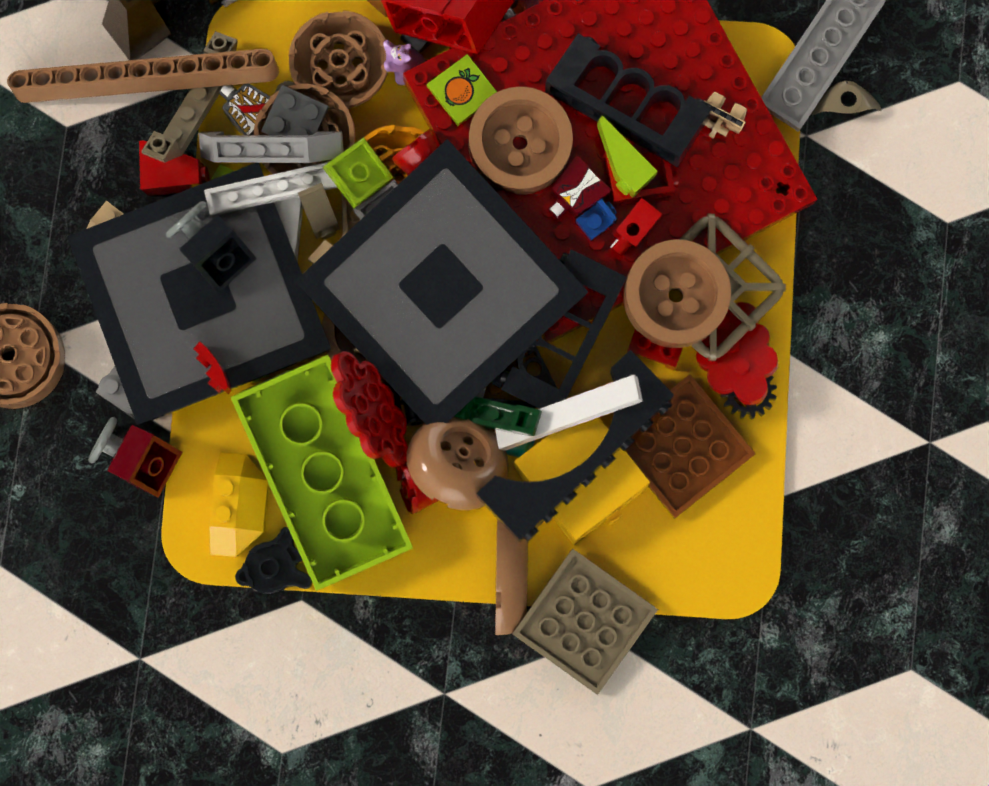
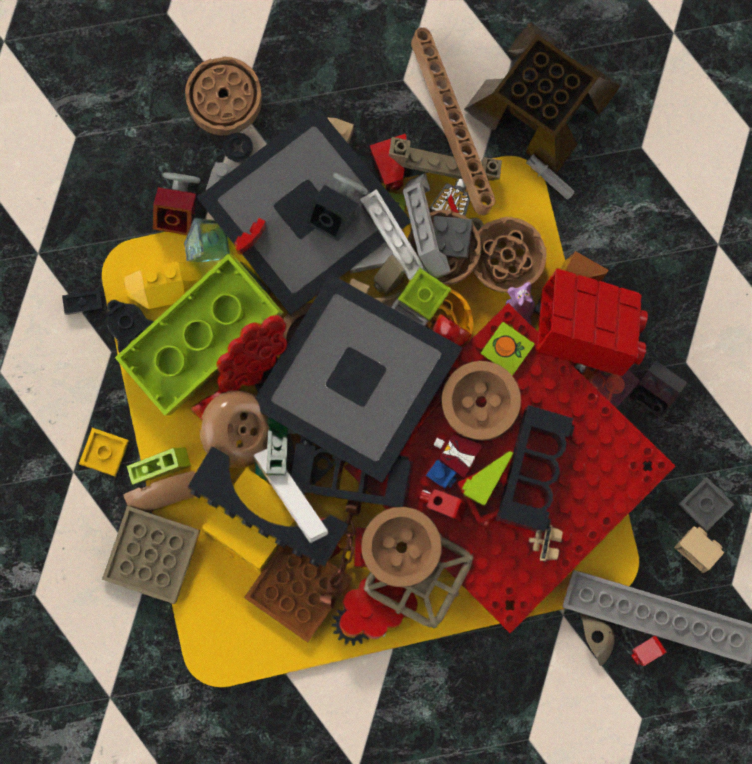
camera: 70 degrees right, 0 degrees up
(73, 357) = (237, 138): none -> black gear
(197, 432) = (205, 241): none -> clear light blue slope
(225, 617) = (82, 302): none -> black plate
(431, 646) = (104, 452): none -> yellow tile
(472, 578) = (159, 465): none -> lime slope
(709, 409) = (329, 598): none -> copper piece
(883, 43) = (648, 651): none -> slope

